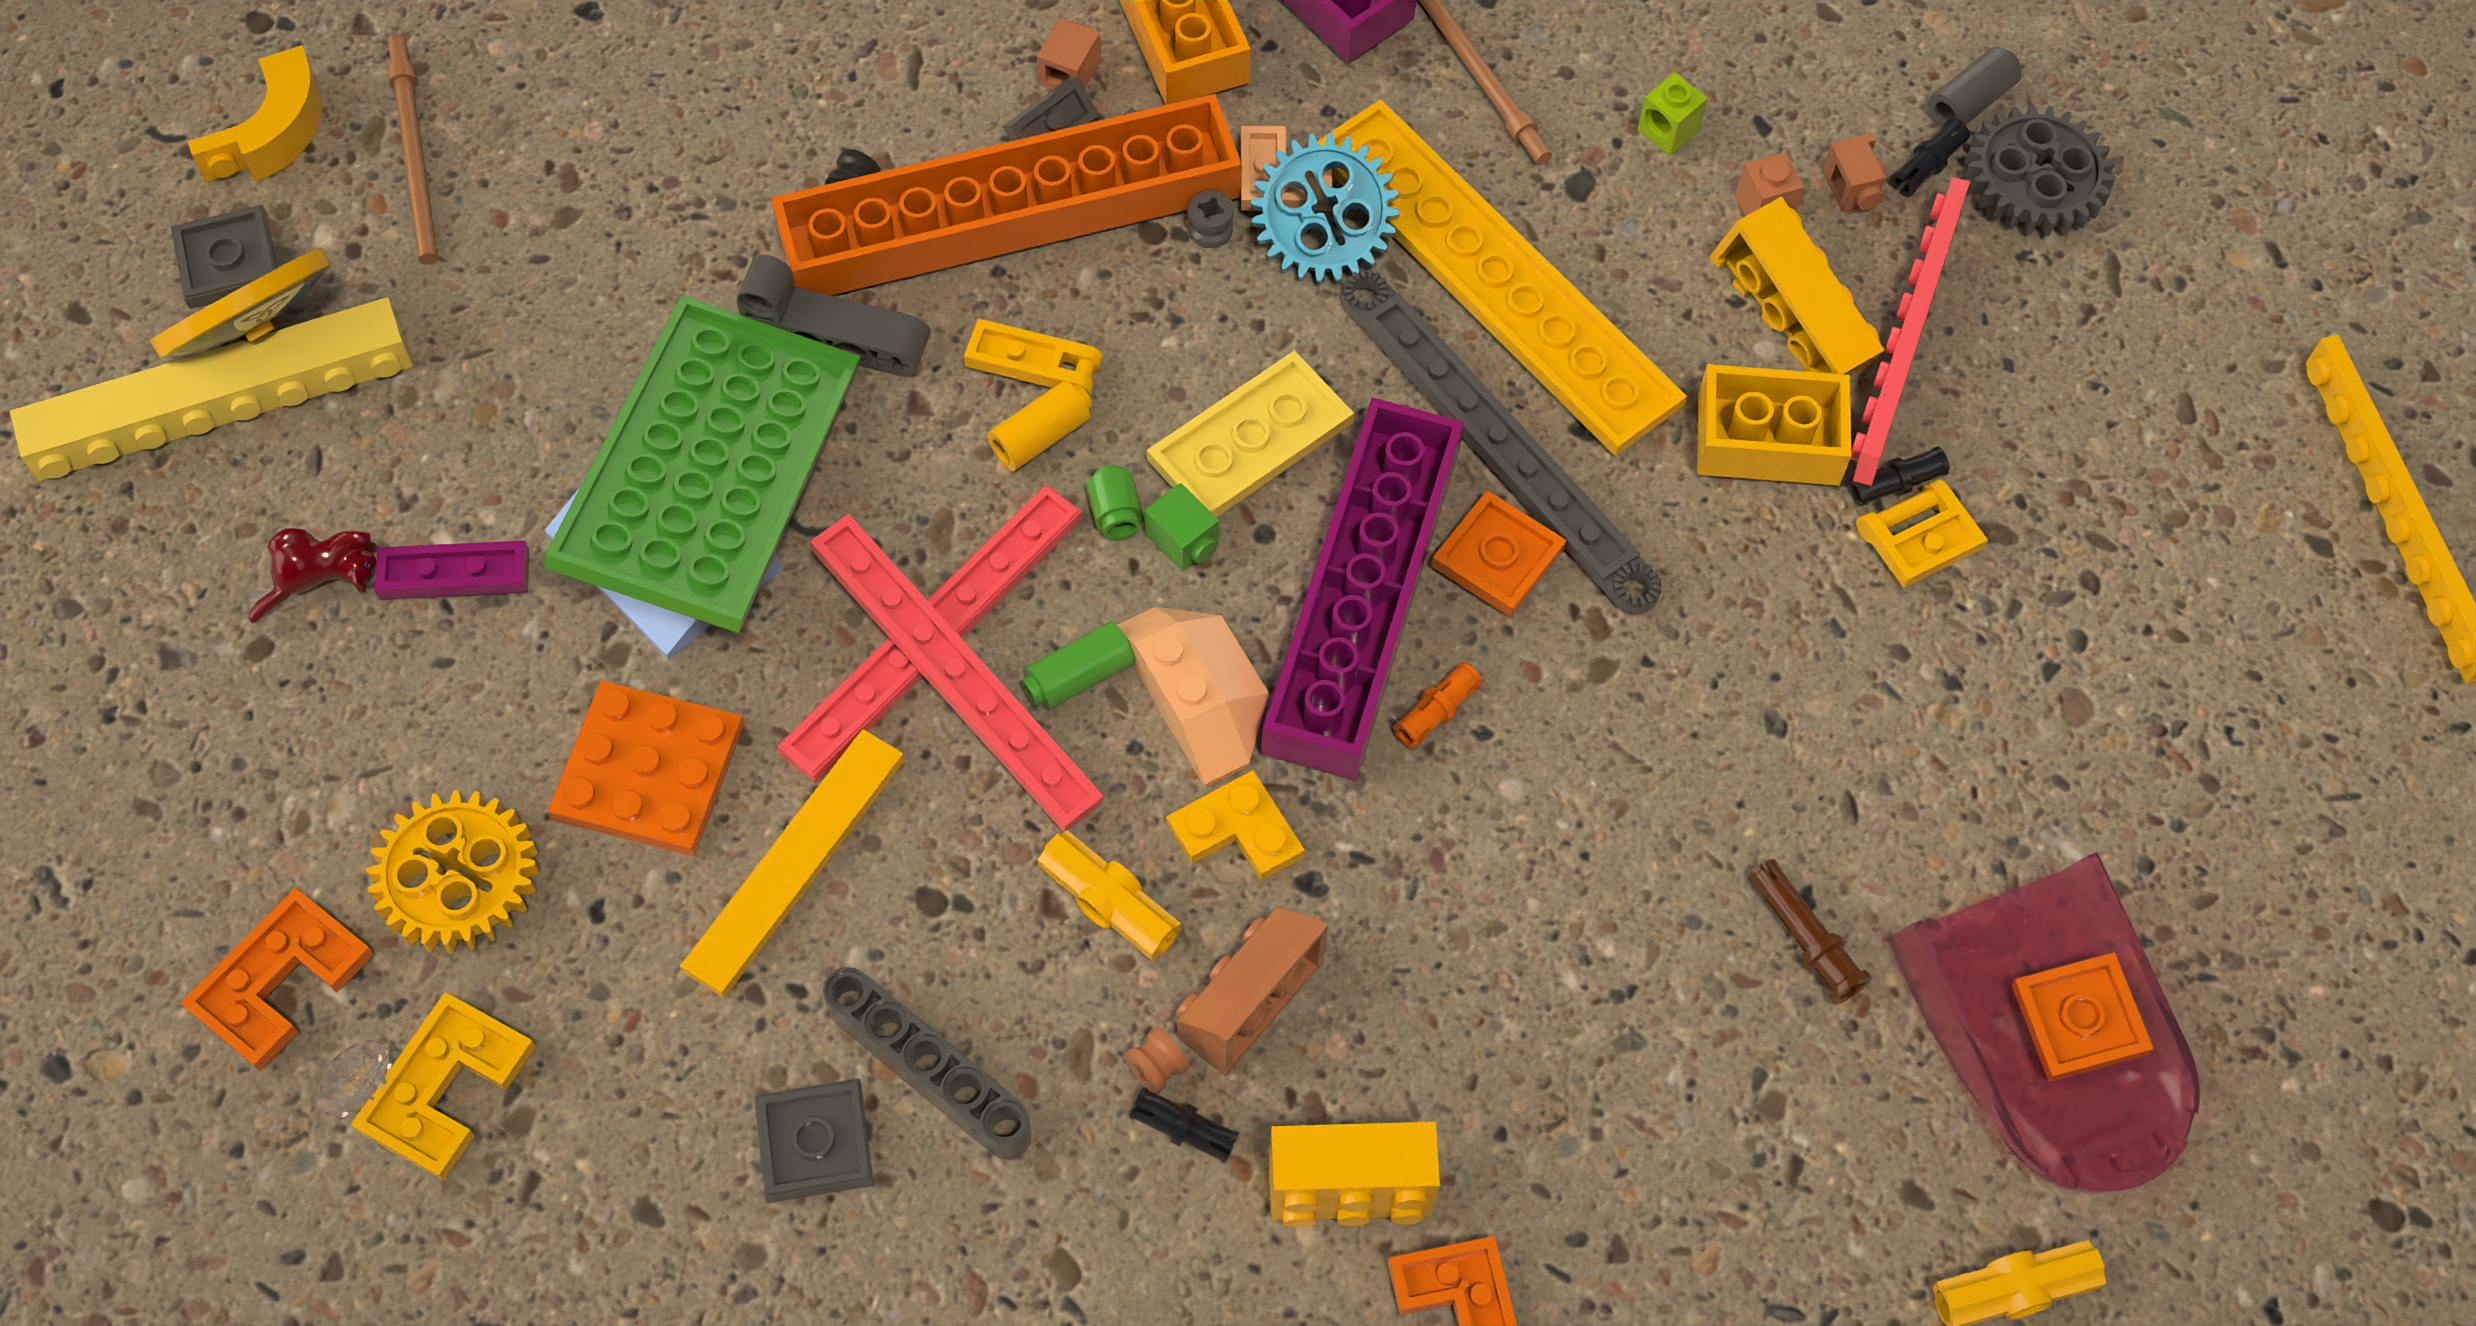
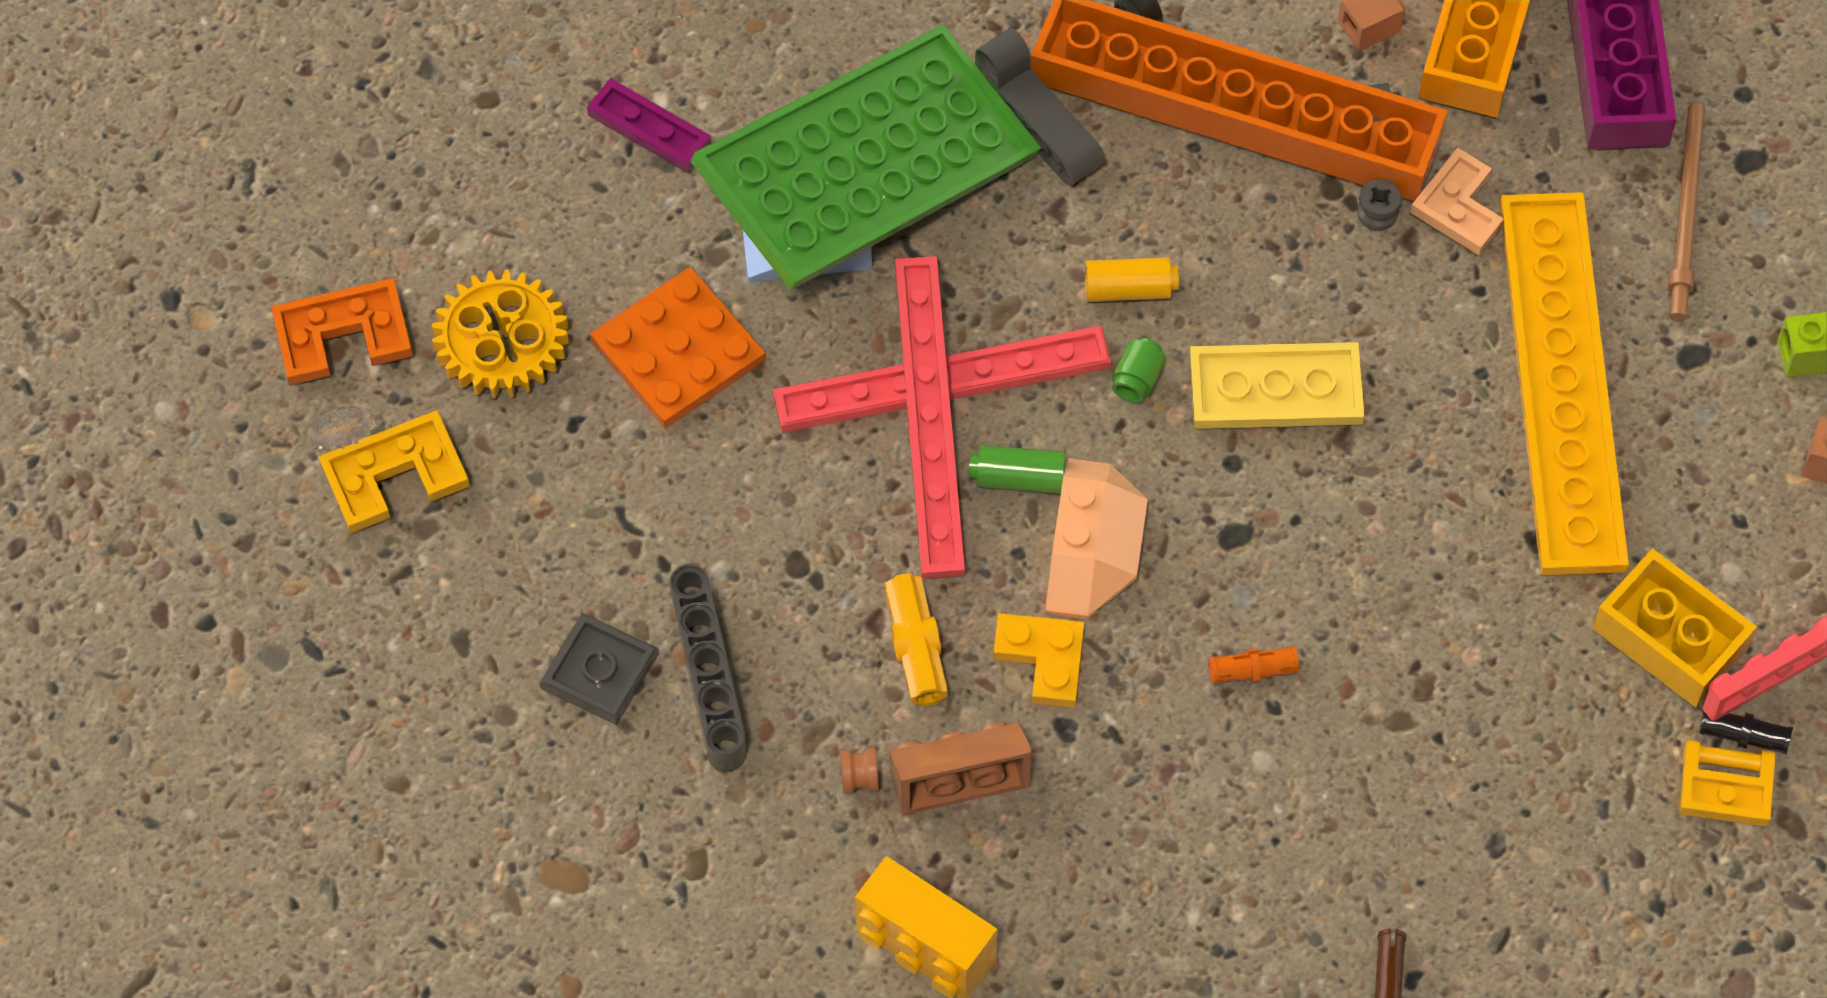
camera: 40 degrees right, 0 degrees up
(305, 562) = (555, 58): dark red animal -> none
(792, 864) = (725, 476): yellow tile -> none
(1030, 356) = (1164, 226): yellow plate -> none
(1059, 109) = (1329, 53): dark grey plate -> none
(1182, 527) = (1171, 419): bright green brick -> none
(1184, 1125) = (845, 825): black pin -> none
(1362, 191) = (1502, 252): medium azure gear -> none
(1362, 589) = (1264, 544): magenta brick -> none
(1498, 553) = (1389, 587): orange plate -> none
(1502, 442) = (1460, 508): dark grey plate -> none
(1797, 291) = (1783, 544): yellow wedge -> none

